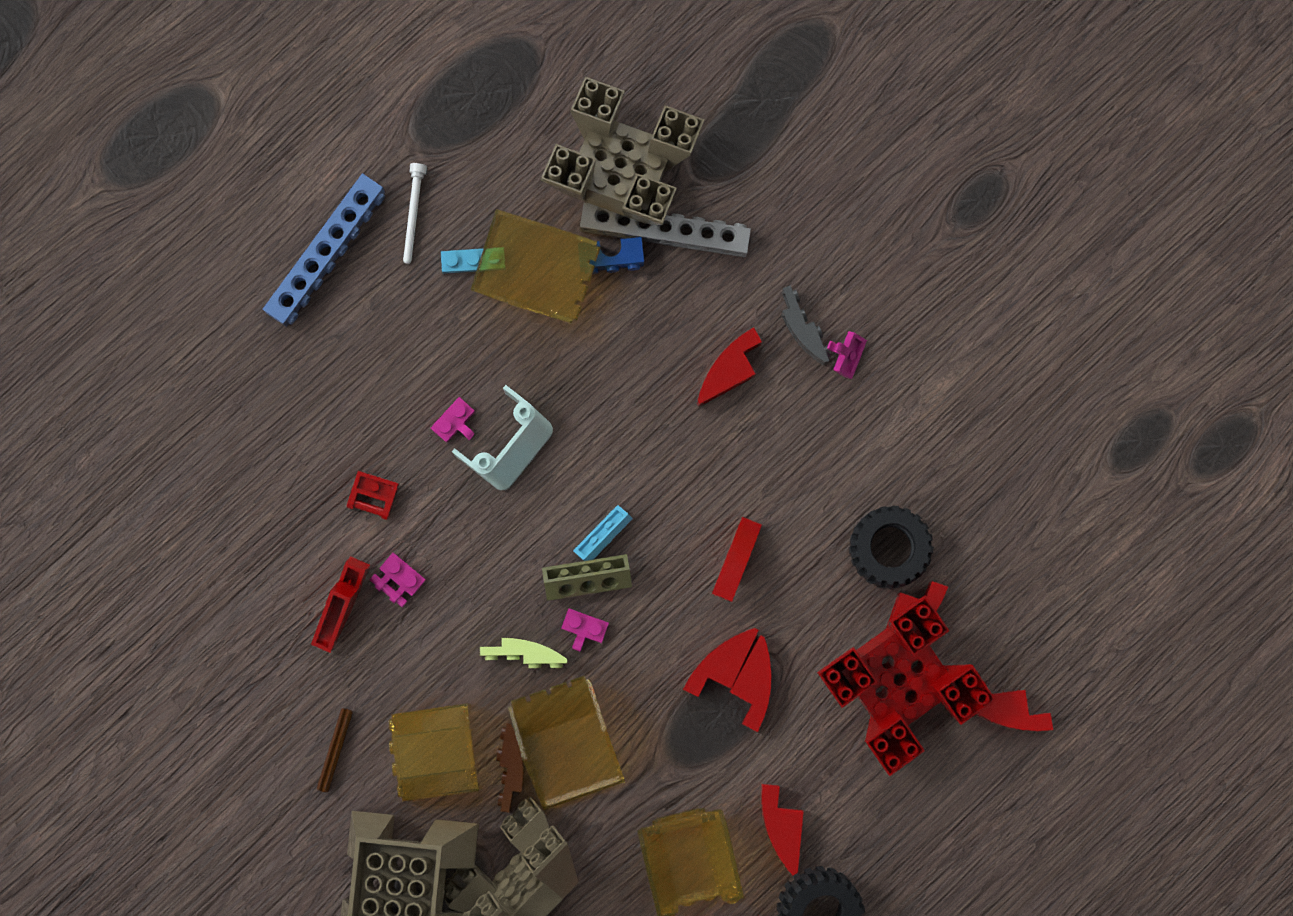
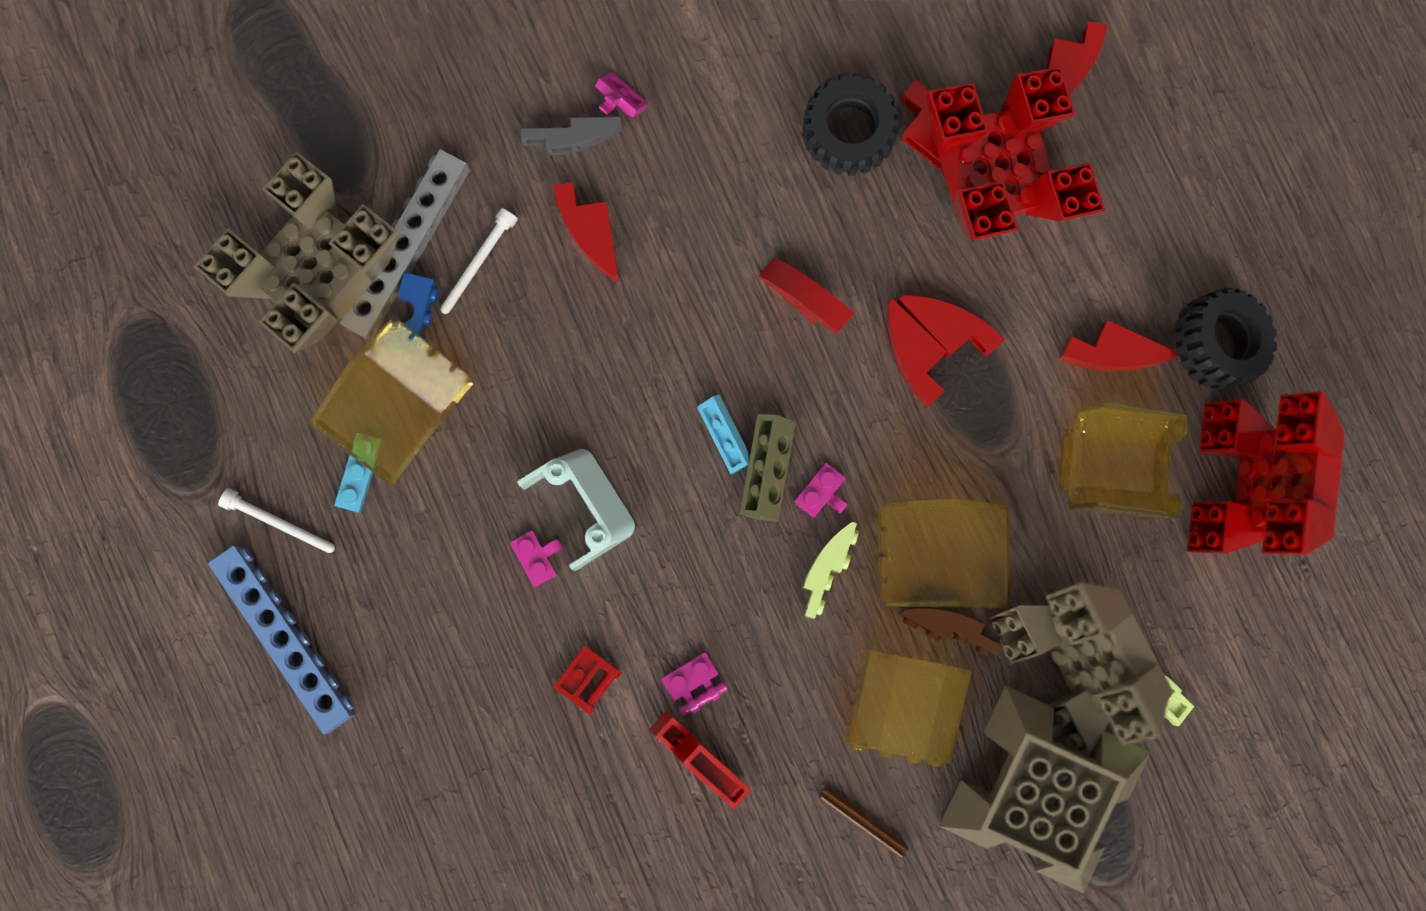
camera: 70 degrees left, 0 degrees up
(712, 299) = (504, 222): none -> white piece

